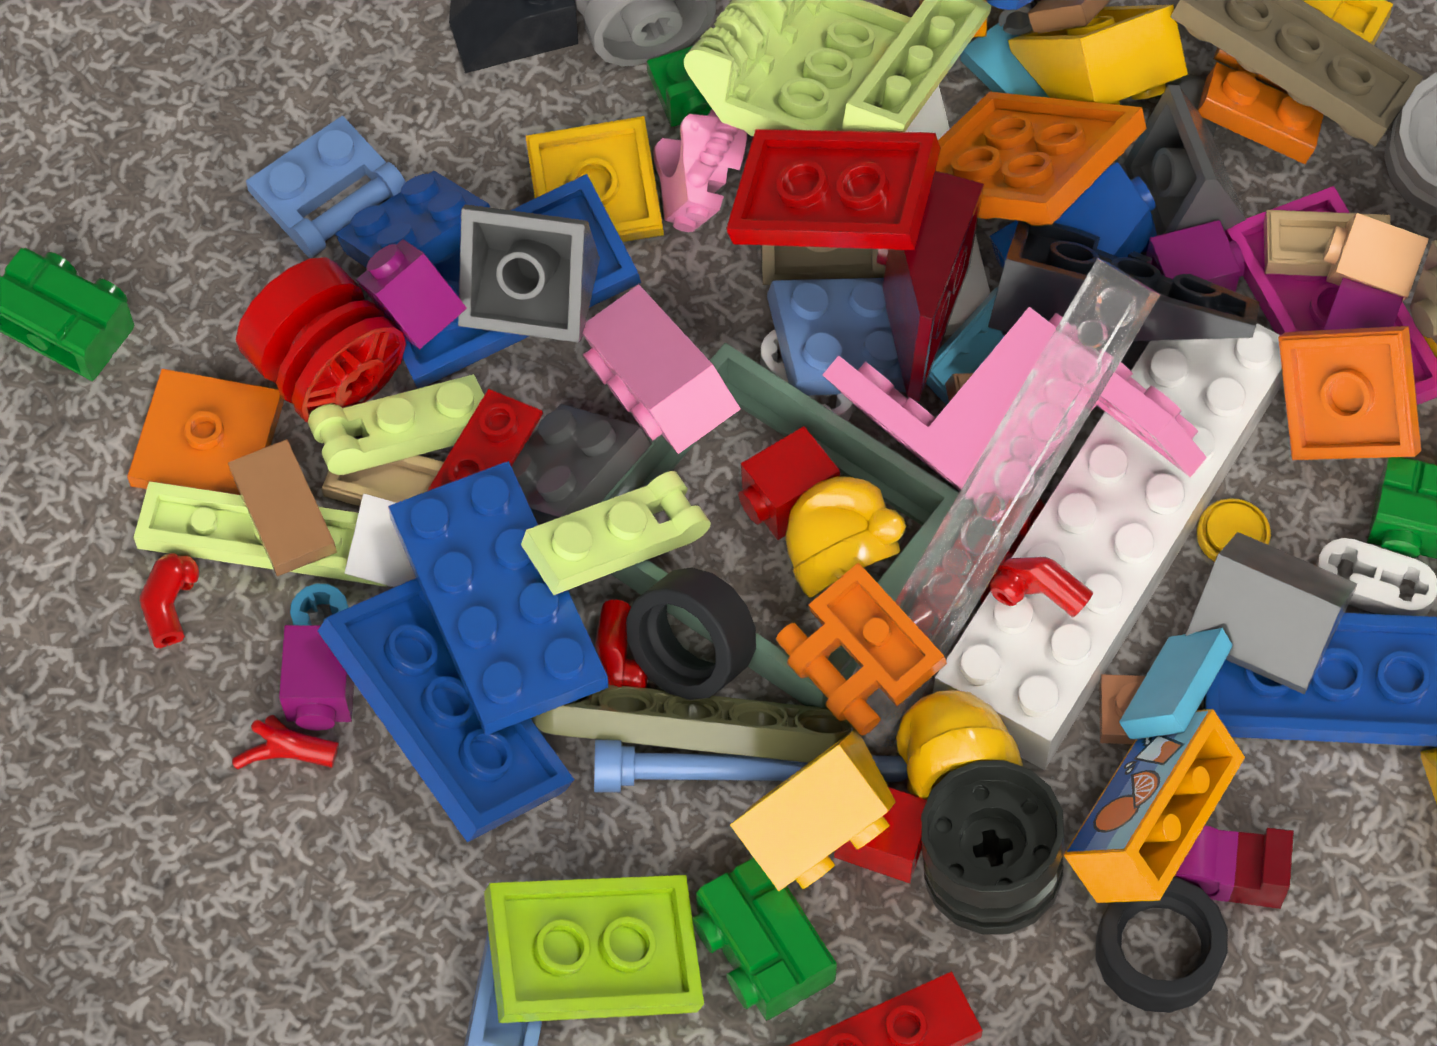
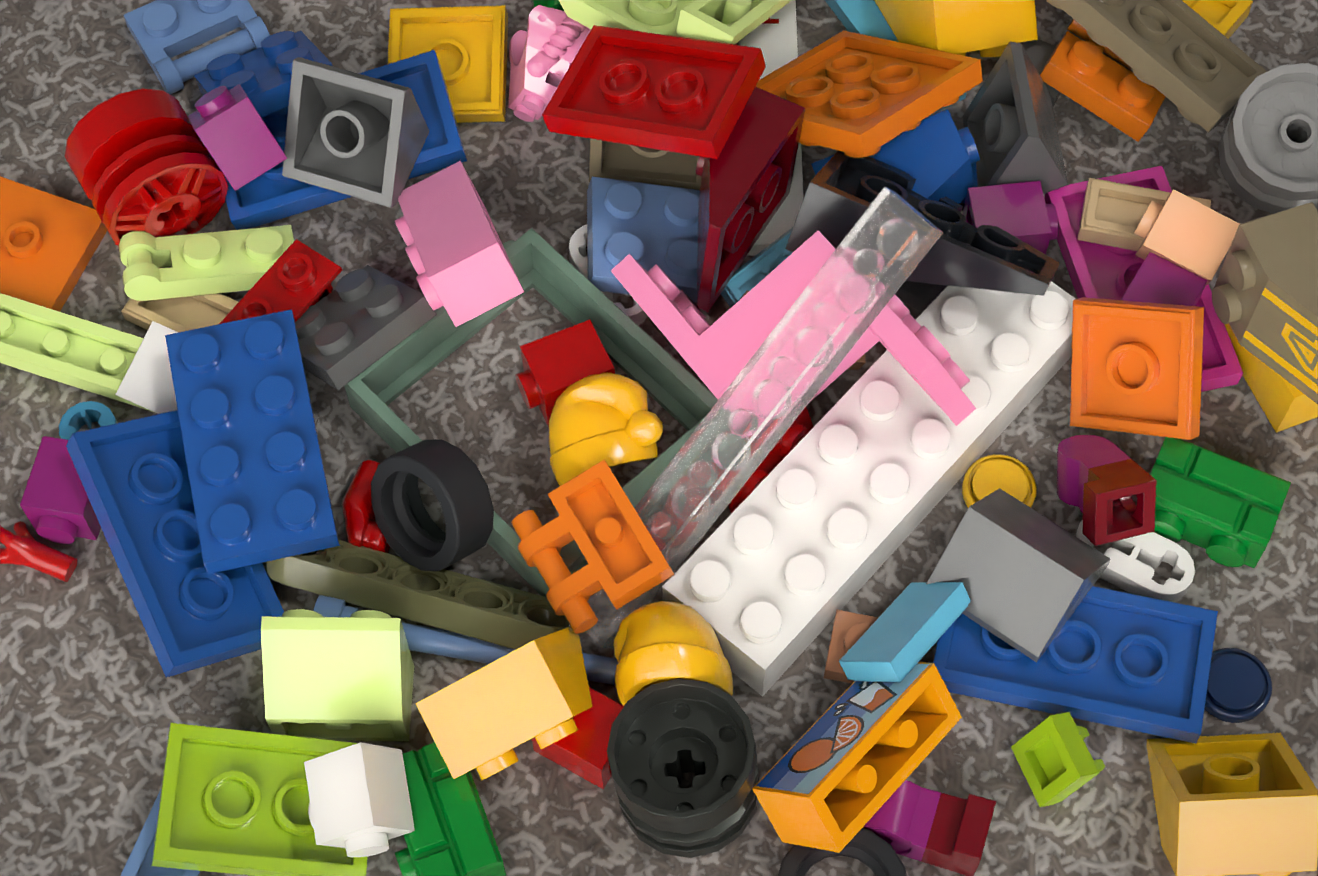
camera: 10 degrees right, 0 degrees up
(282, 507) = (72, 323): medium nougat tile -> none
(614, 534) = (376, 395): yellowish green plate -> none
(637, 813) = (337, 676): none -> yellowish green slope
(689, 925) = (359, 798): none -> white brick
(1039, 576) = (782, 501): red arm -> none
(1335, 512) = (1101, 482): none -> dark red leg
(1339, 783) = (1056, 759): none -> lime tile

